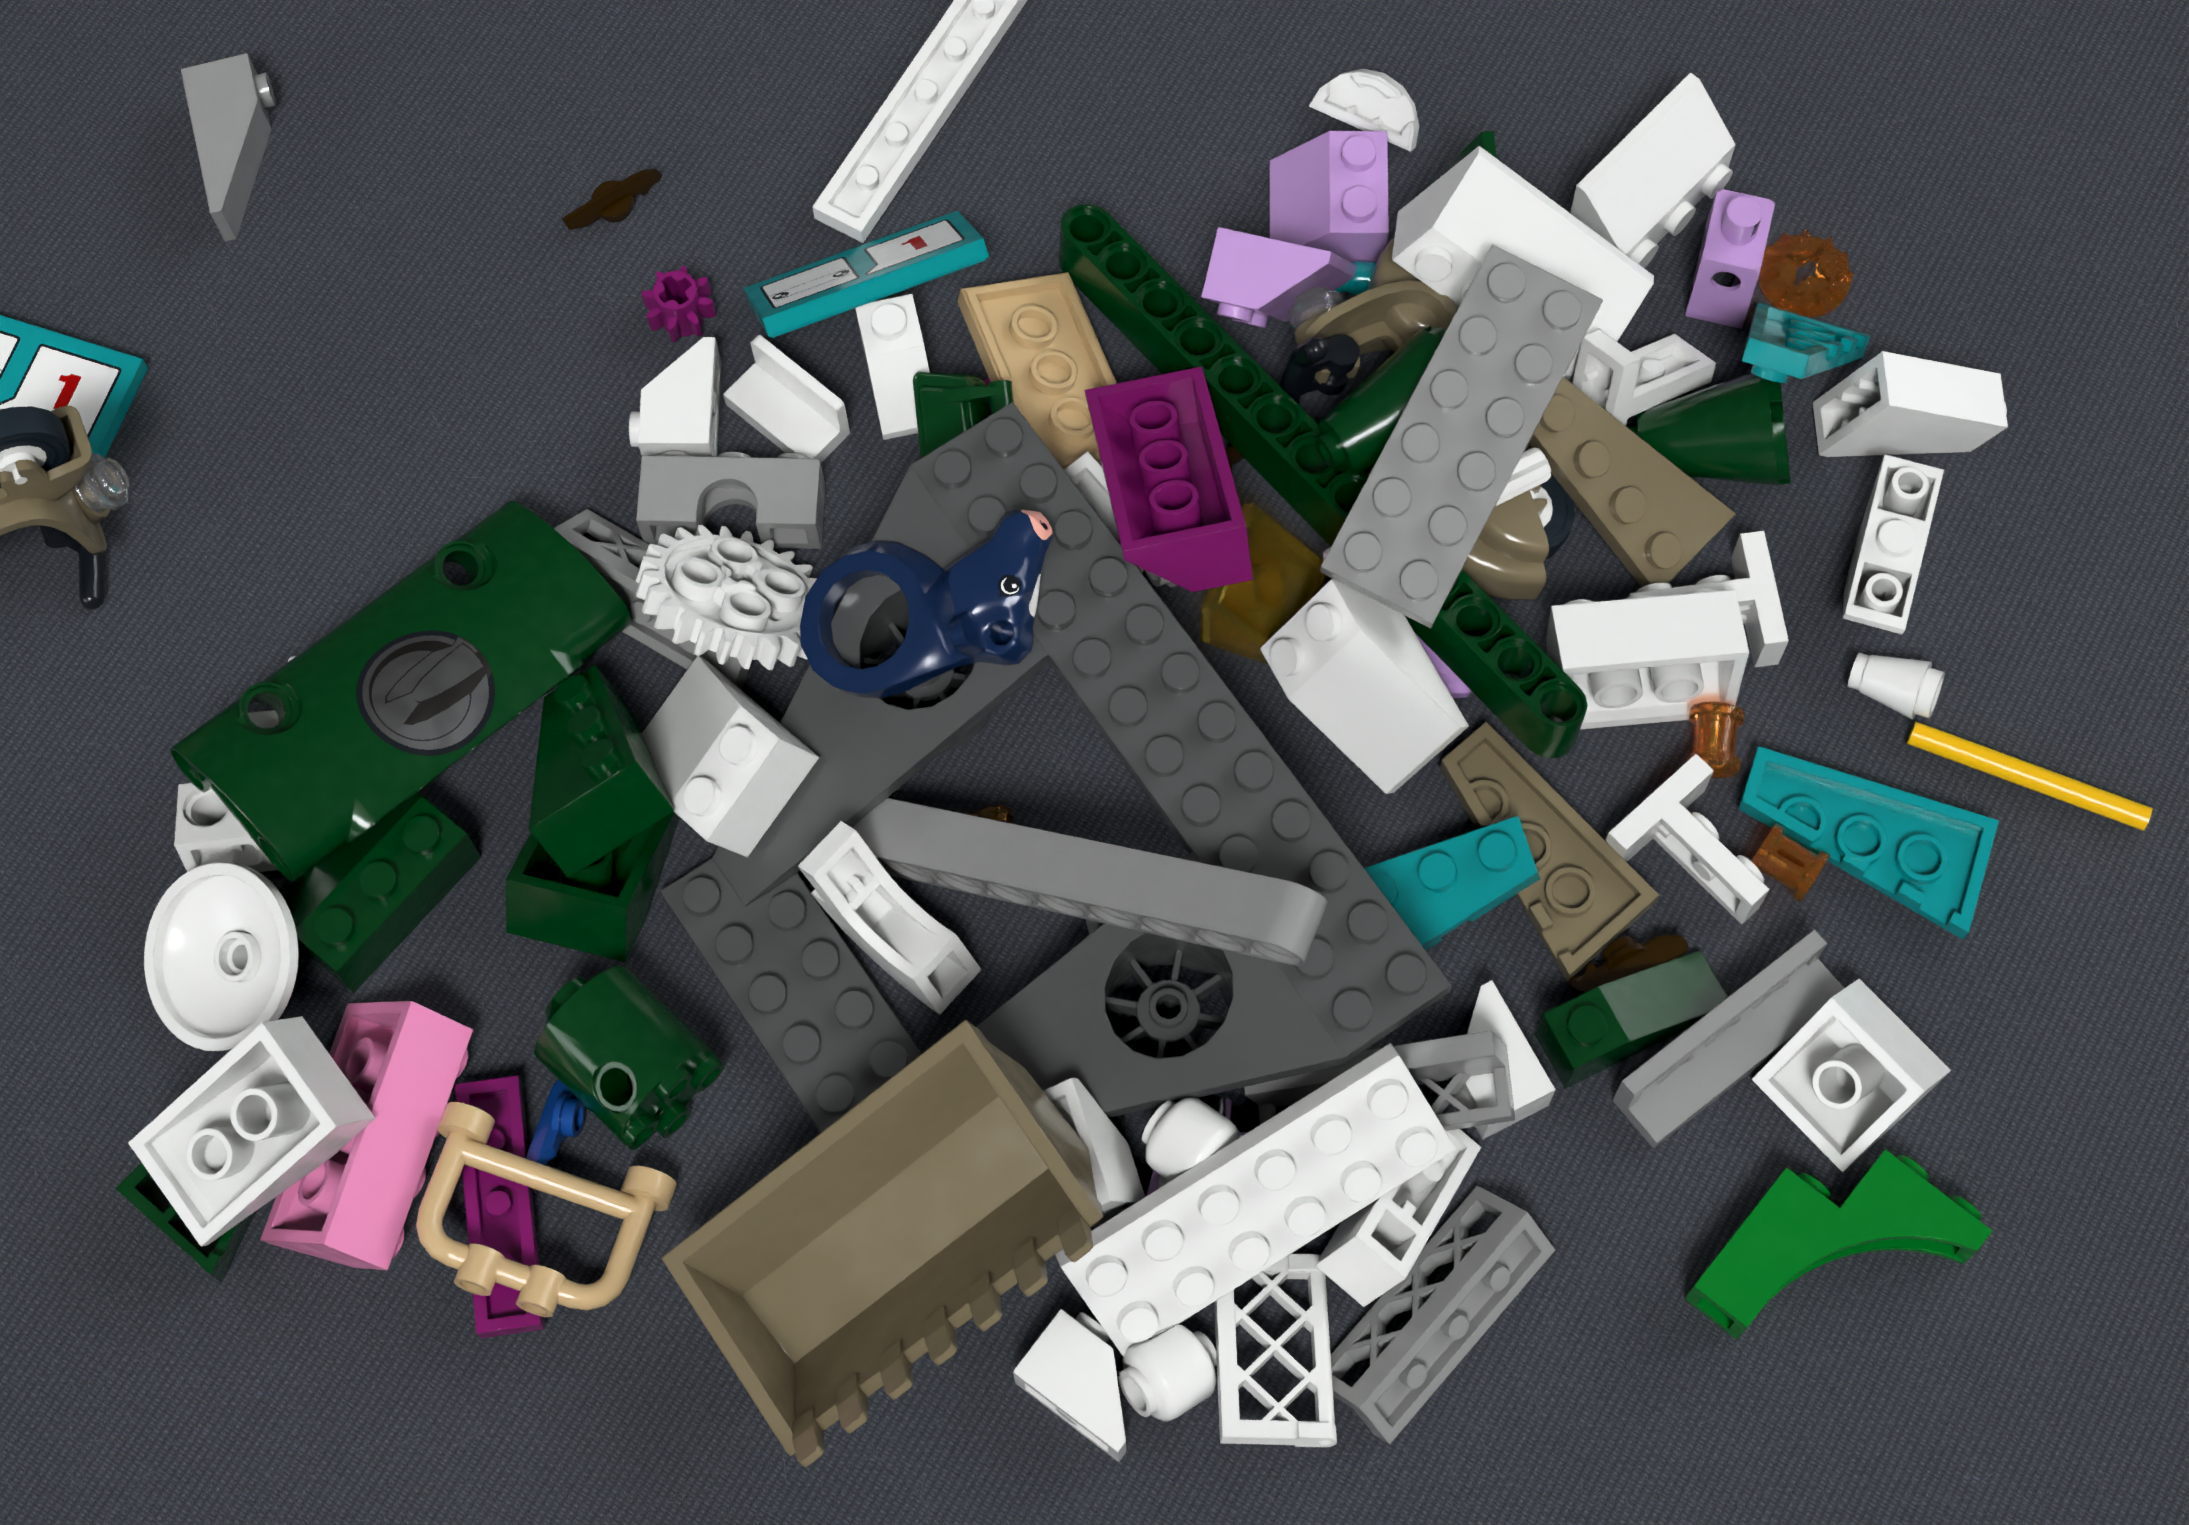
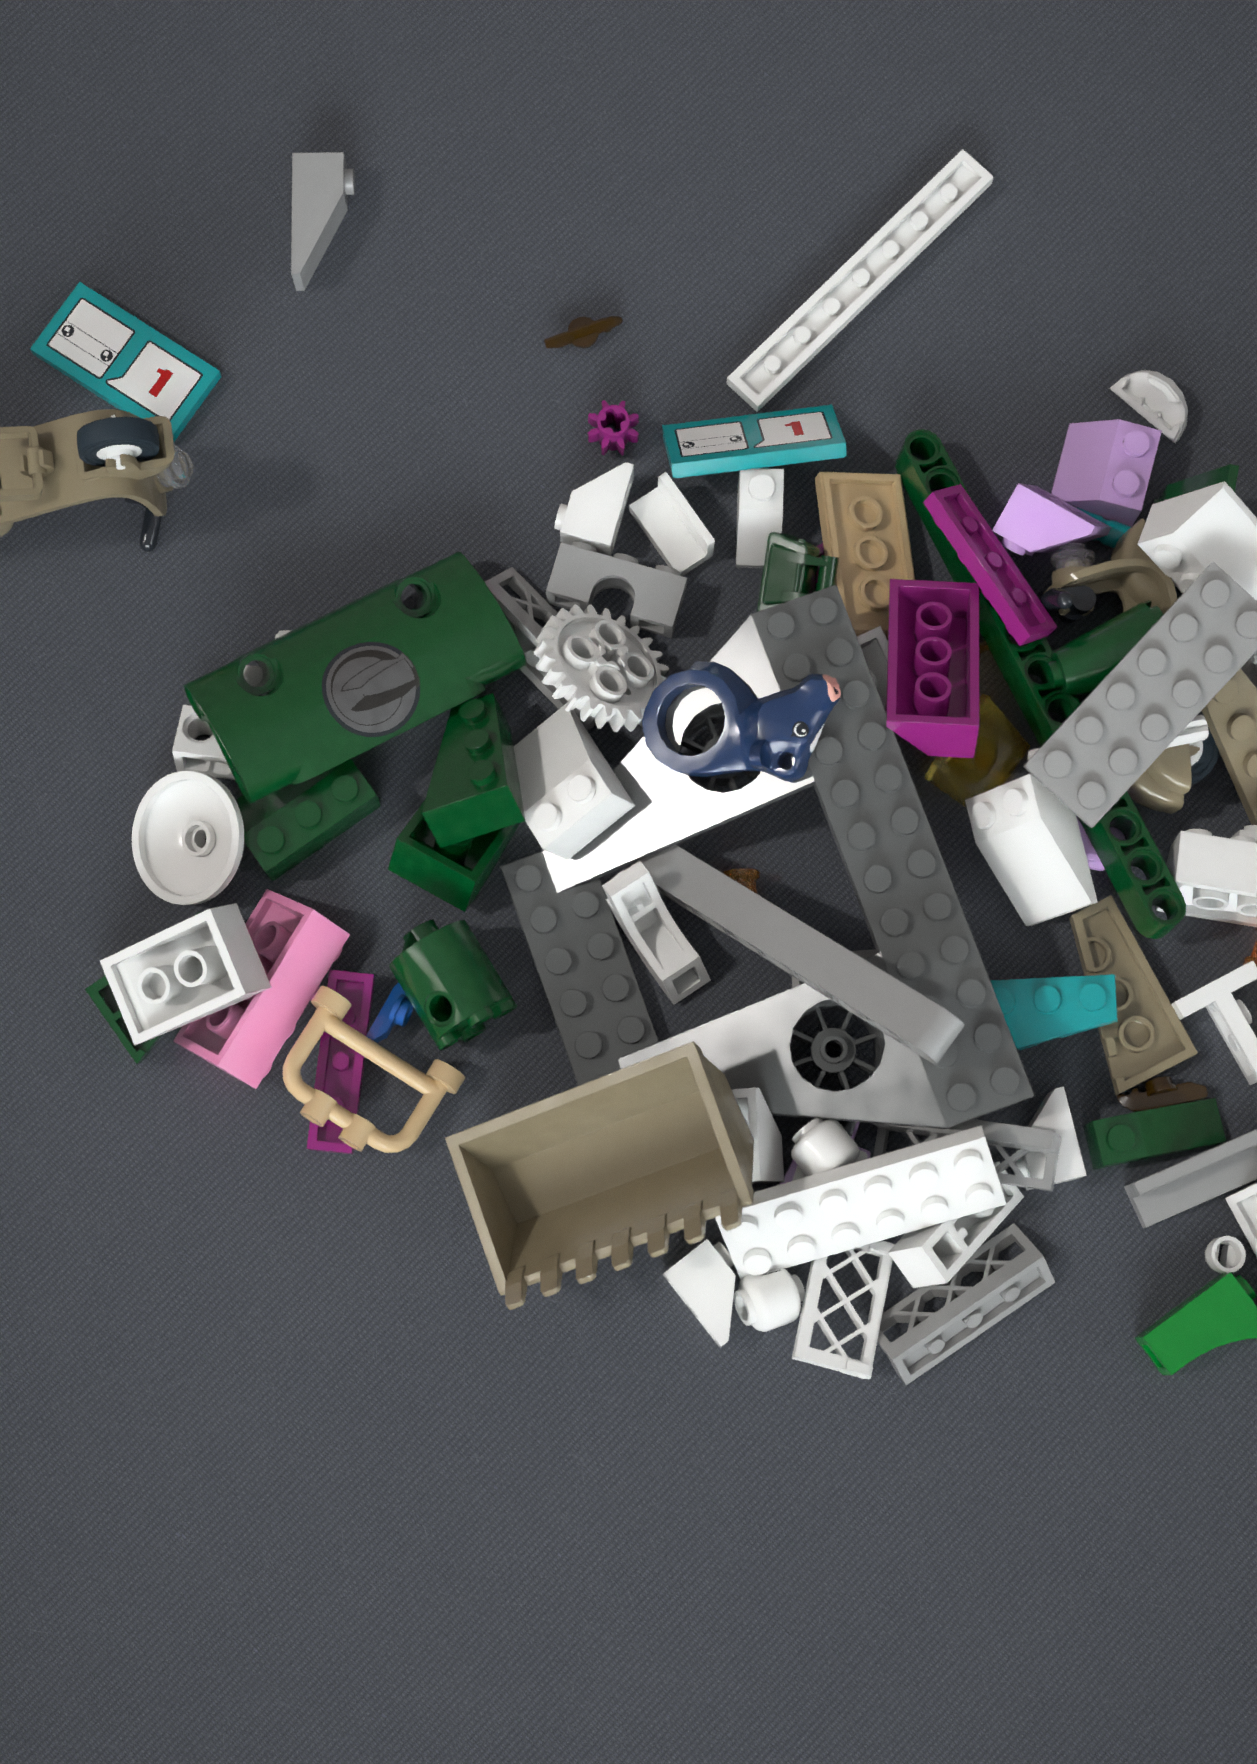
camera: 10 degrees right, 10 degrees up
(1209, 339) = (990, 564): none -> magenta plate
(1783, 1150) = (1232, 1254): none -> white hinge

